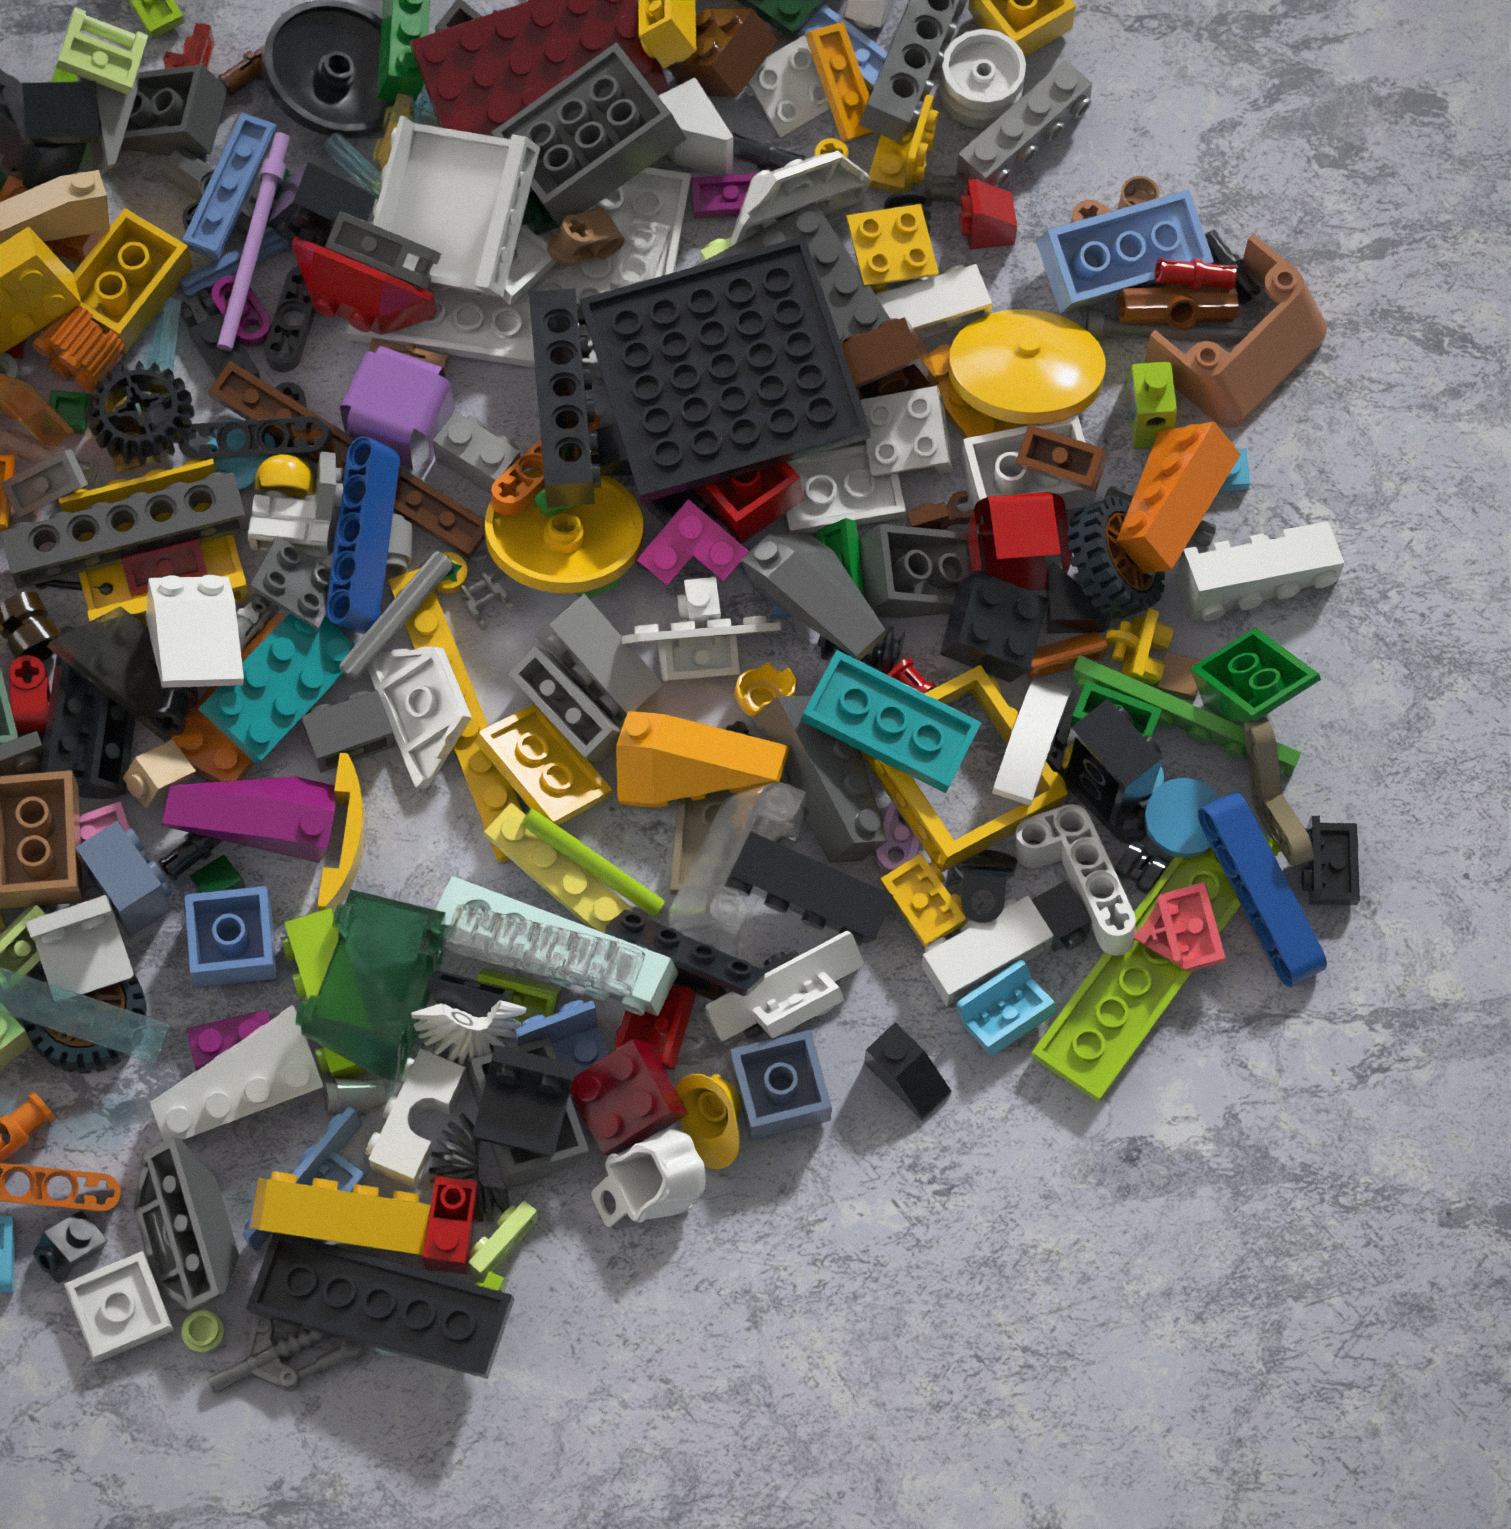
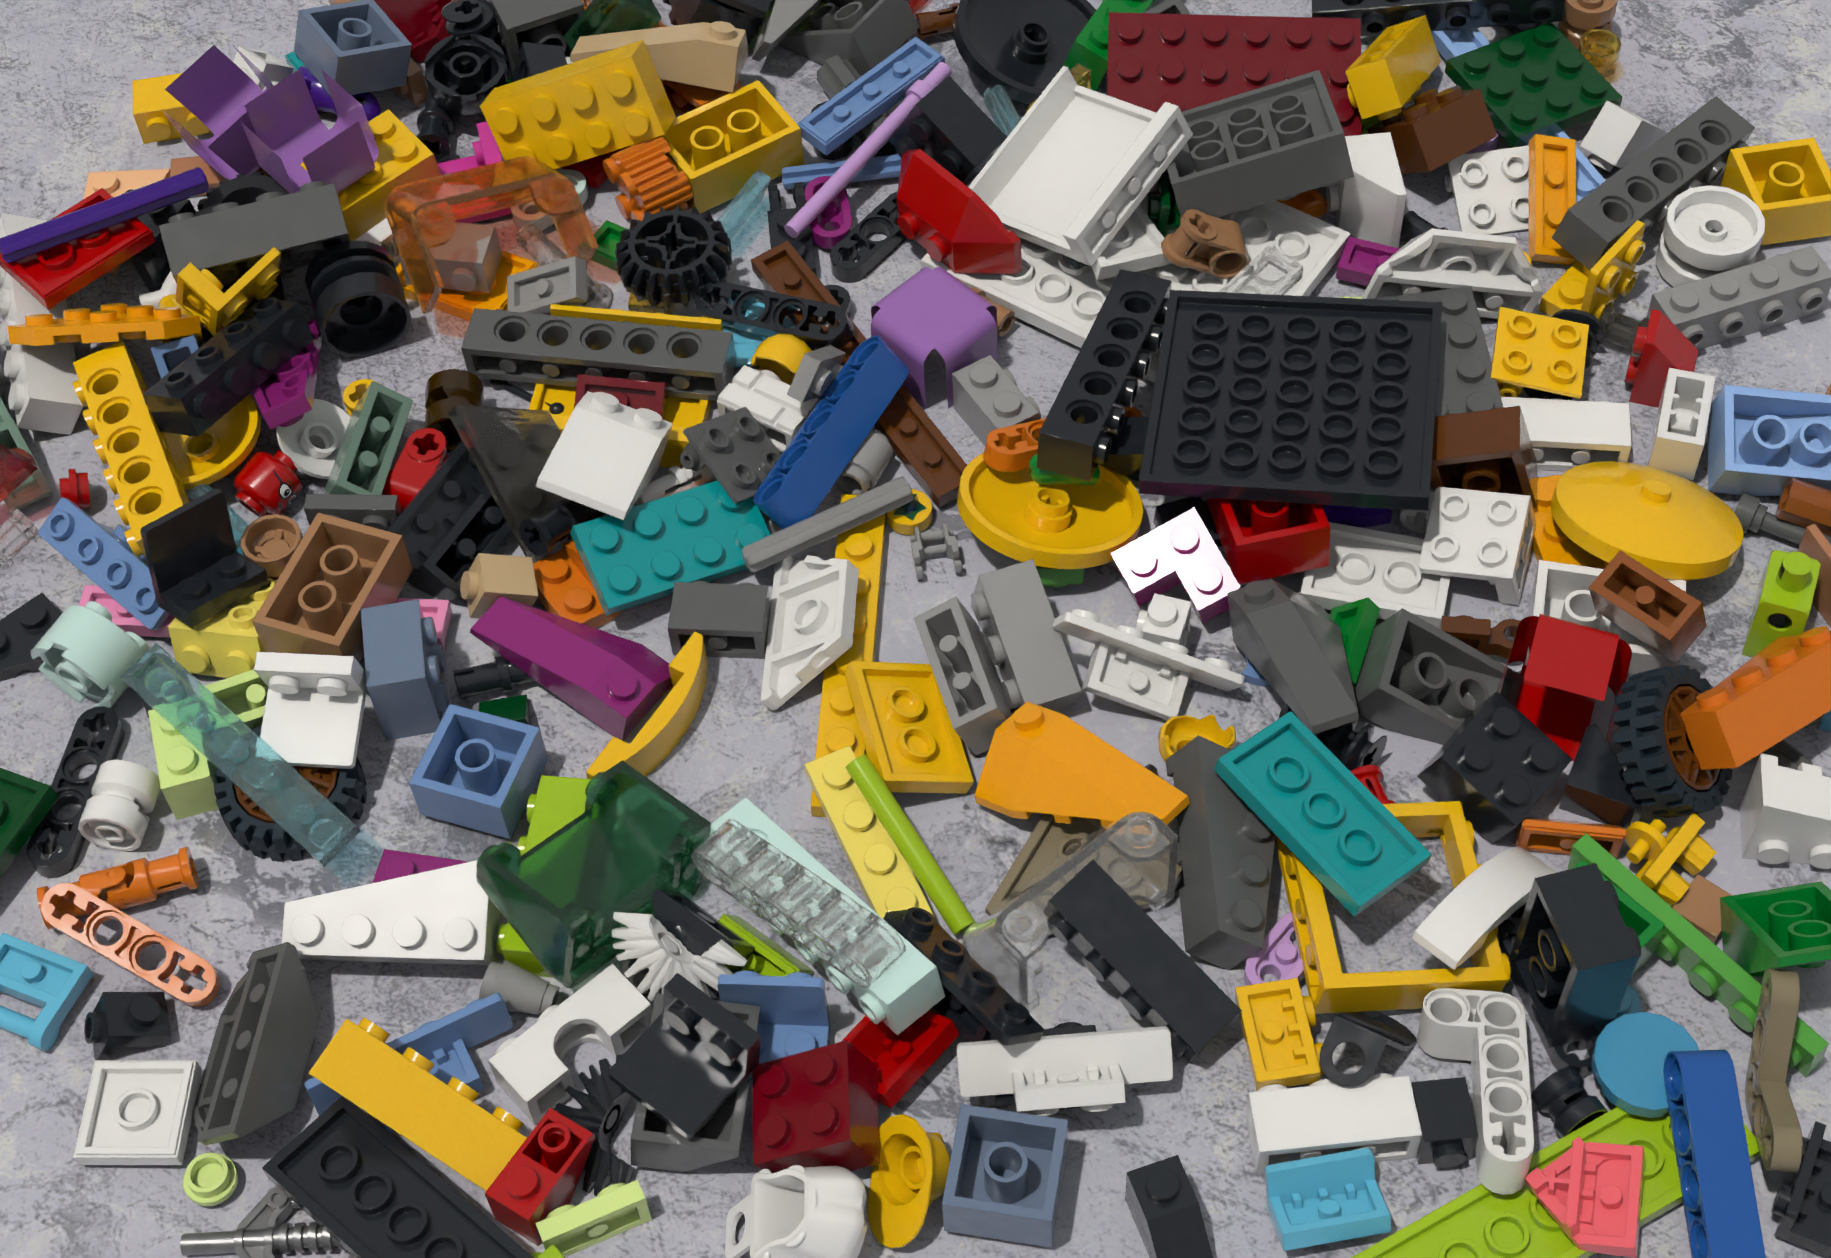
camera: 30 degrees right, 15 degrees down
(381, 249) = (988, 178): dark grey plate -> none
(1021, 265) = (1681, 422): none -> white brick

